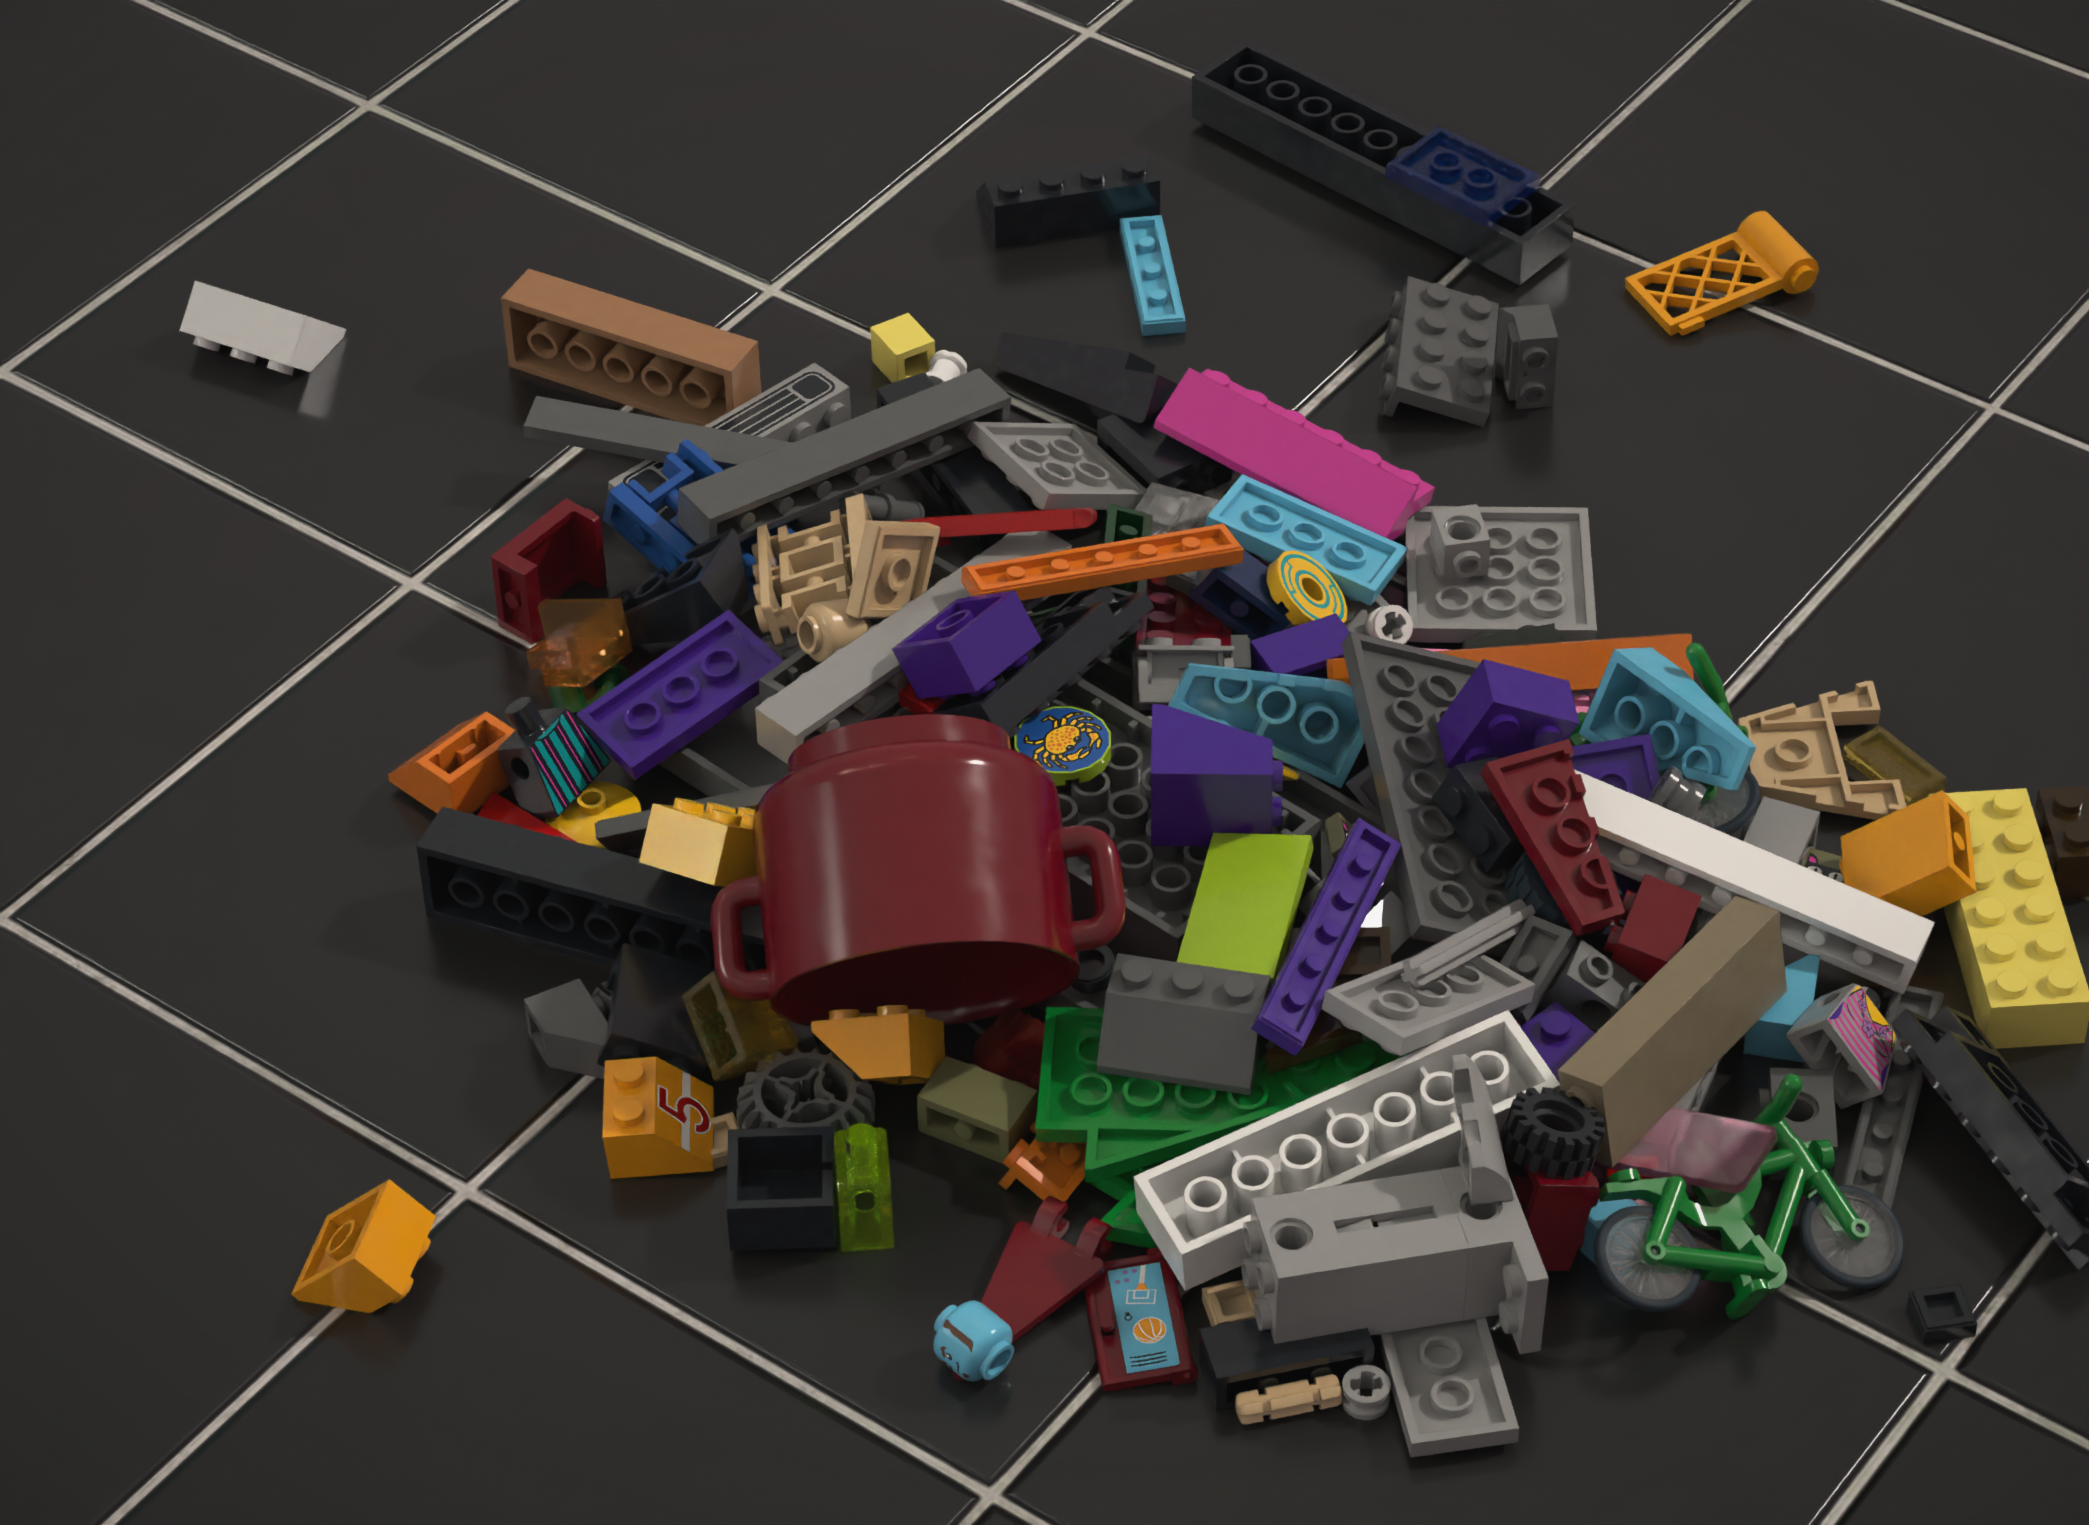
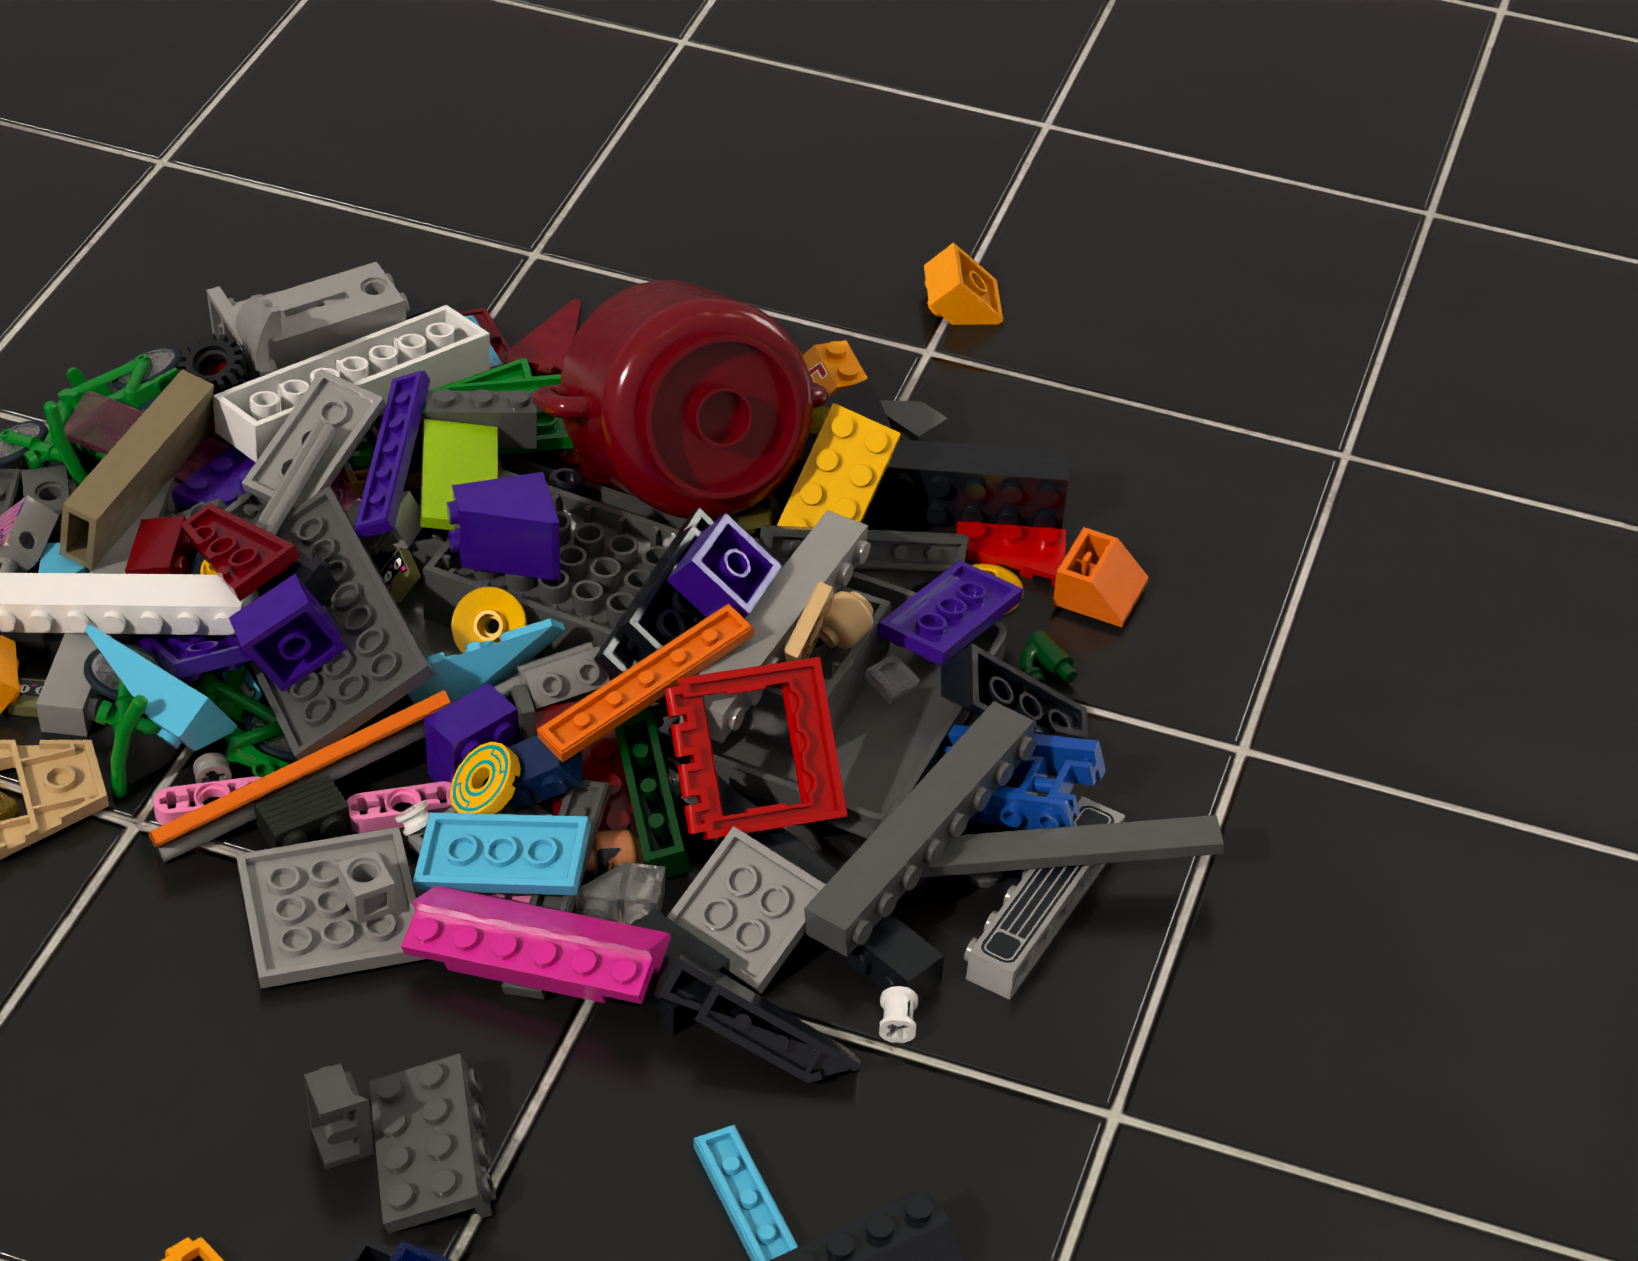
camera: 160 degrees right, 0 degrees up
(257, 330) = (1537, 946): white slope -> none
(544, 564) = (1129, 724): dark red panel -> none
(548, 758) = (1036, 562): black torso -> none
(579, 640) = (1051, 665): clear orange panel -> none
(627, 350) = (1183, 949): medium nougat brick -> none
(810, 567) = (864, 710): tan fence -> none
(901, 348) = (947, 1035): light yellow brick -> none
(973, 1341) = (568, 293): medium azure head -> none
(1066, 743) = (624, 573): tile -> none
(1677, 793) = (150, 634): dark grey wheel -> none

